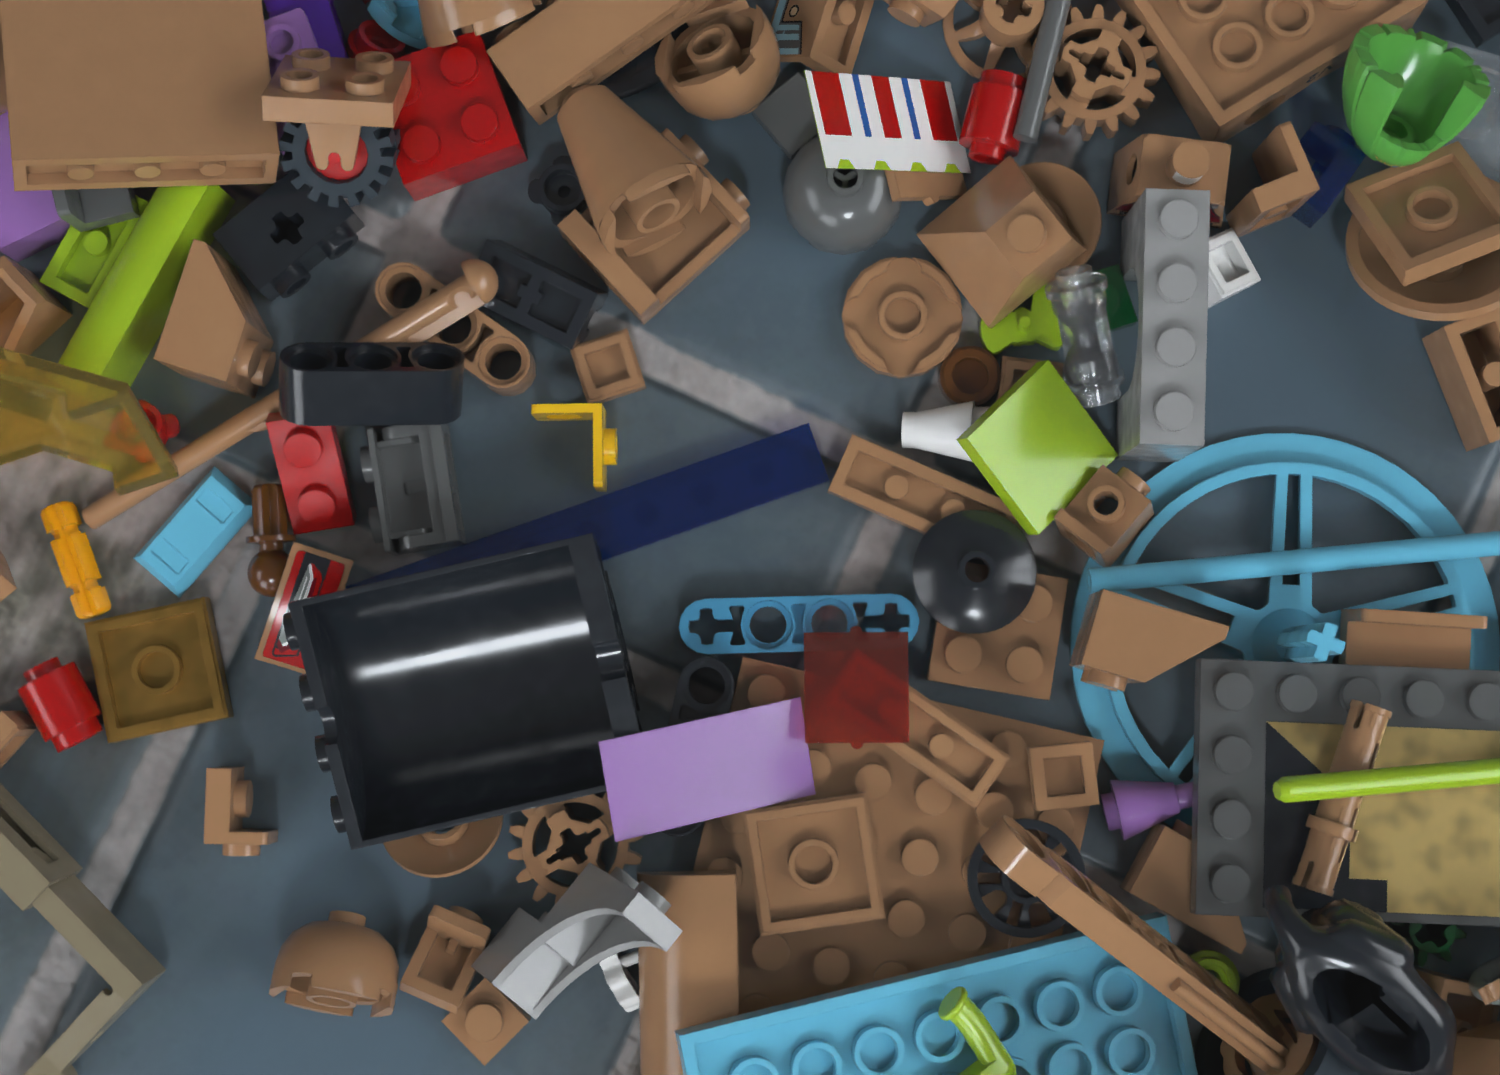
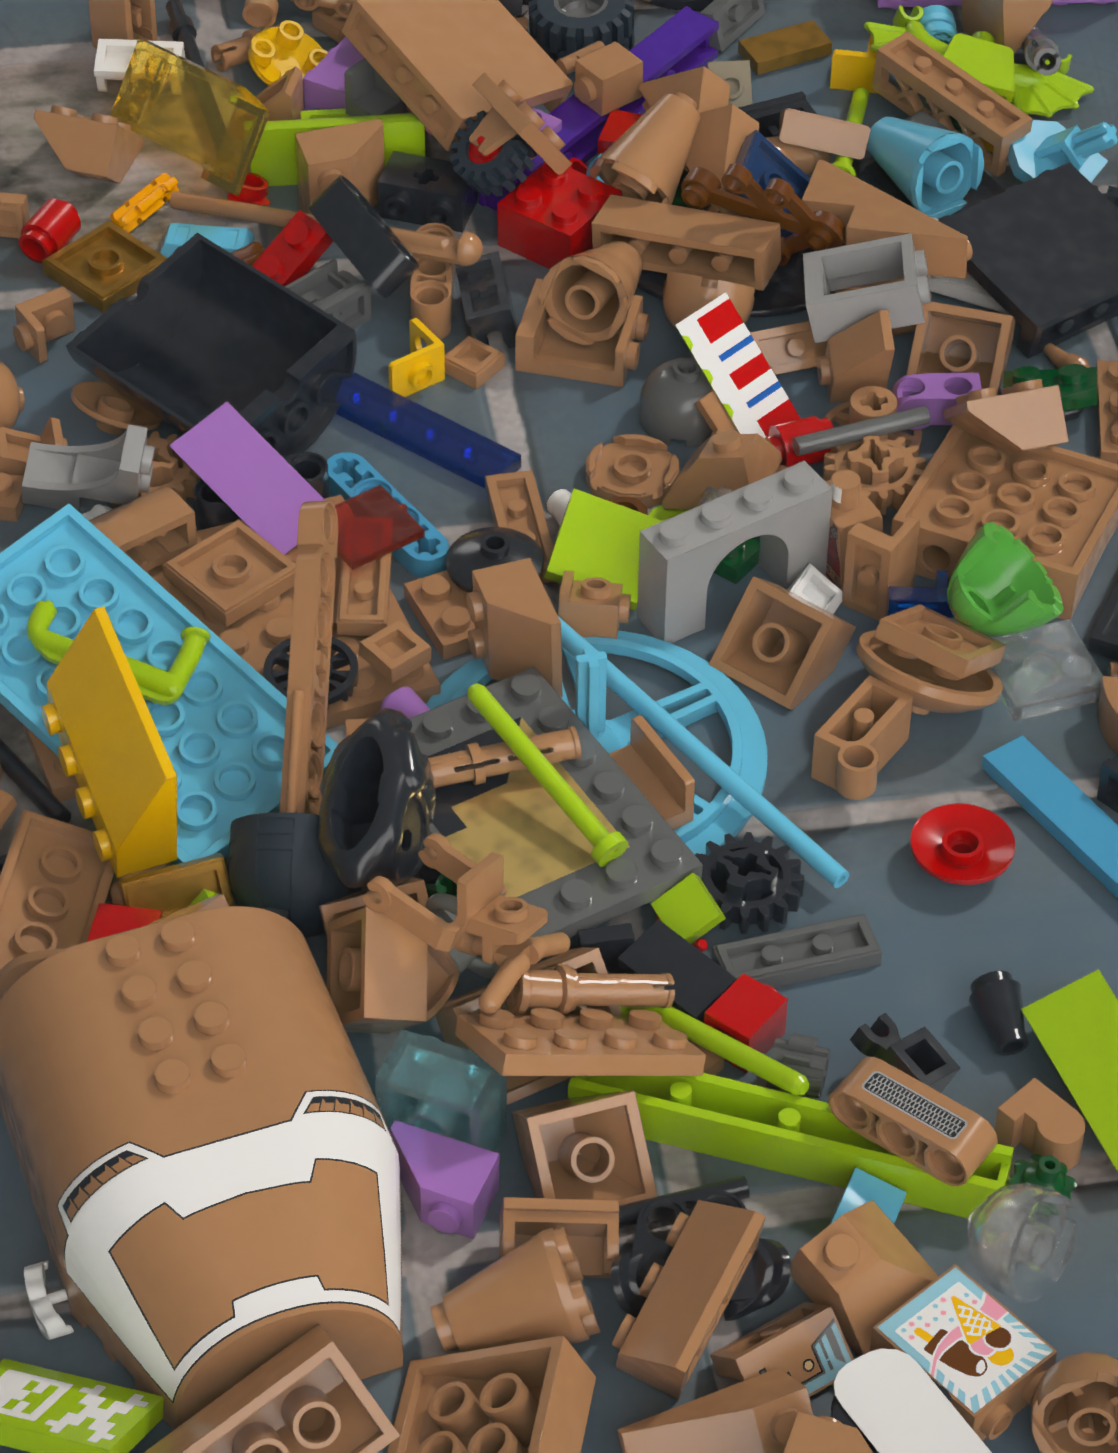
camera: 50 degrees right, 40 degrees down
(1283, 352) = (781, 643): none -> medium nougat slope

